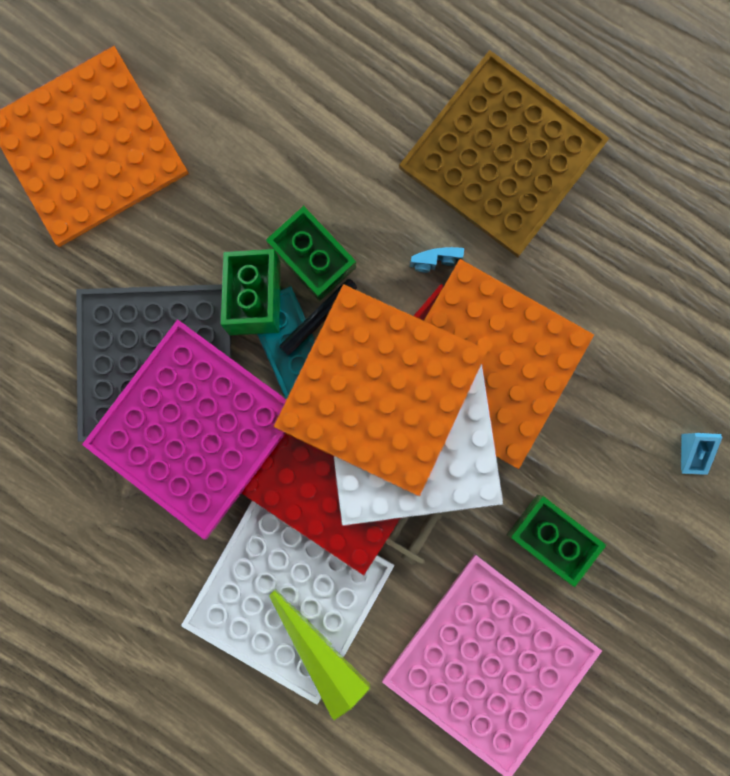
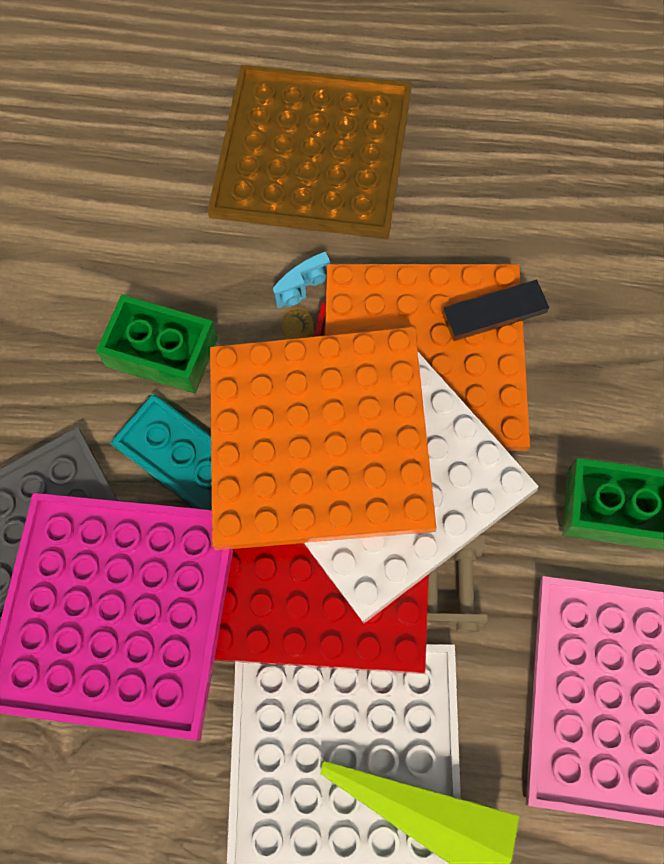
camera: 25 degrees left, 15 degrees down
(251, 292) = (107, 418): green brick -> none
(305, 329) = (195, 425): black axle -> none
(416, 289) = (297, 324): none -> clear yellow tile
(554, 362) = (495, 310): none -> black tile

